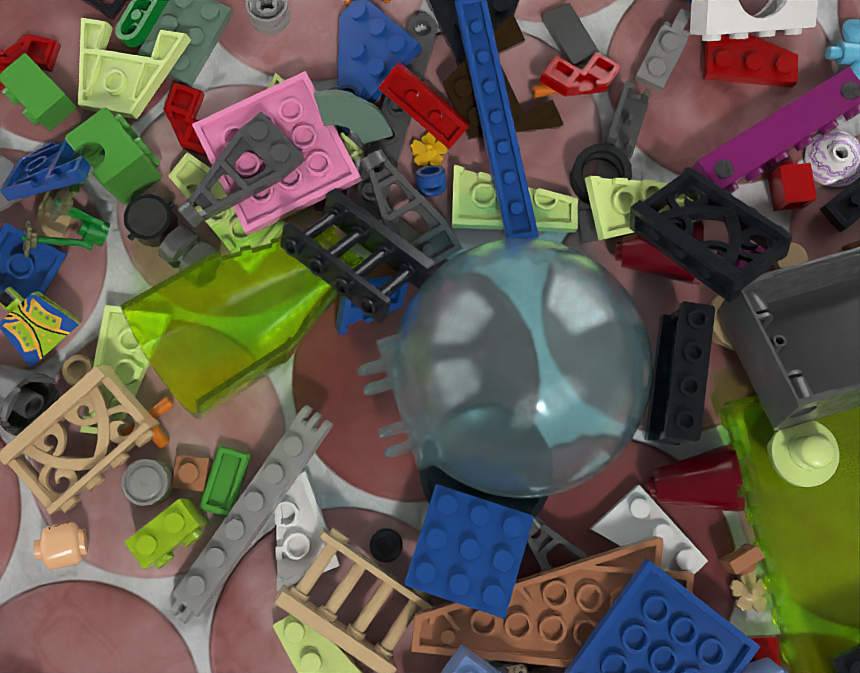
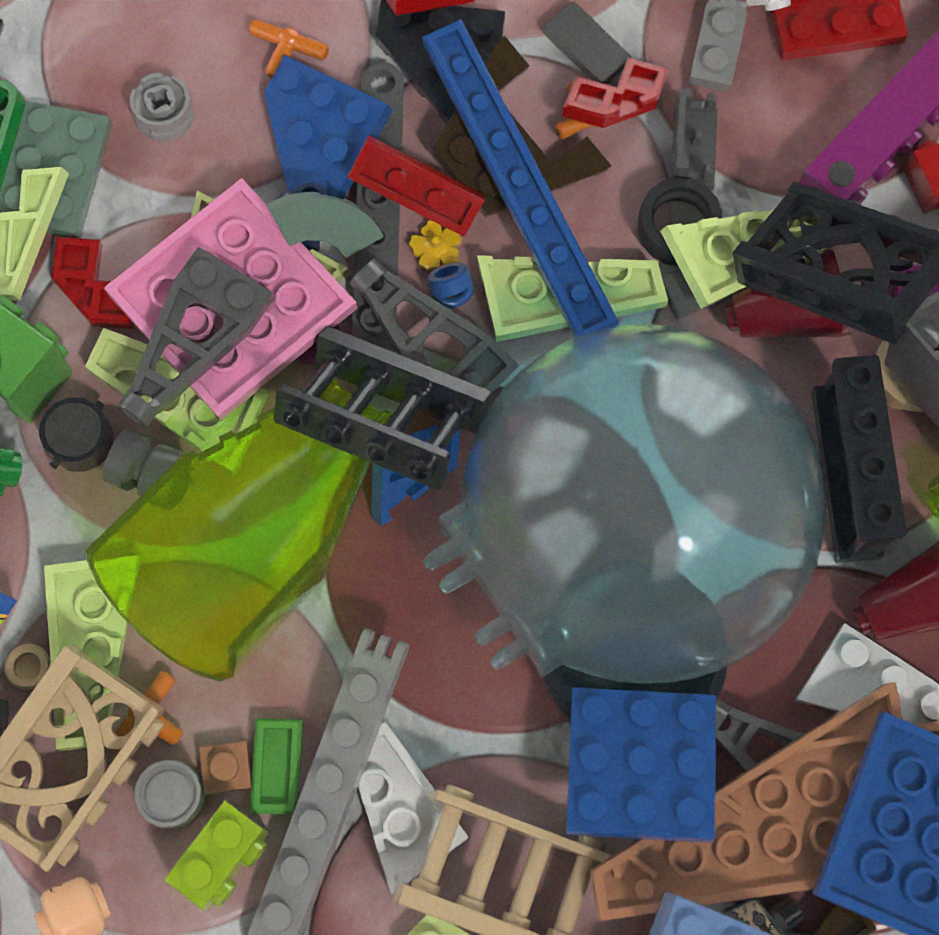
camera: 15 degrees left, 5 degrees down
(386, 545) = (523, 795): black tile -> none

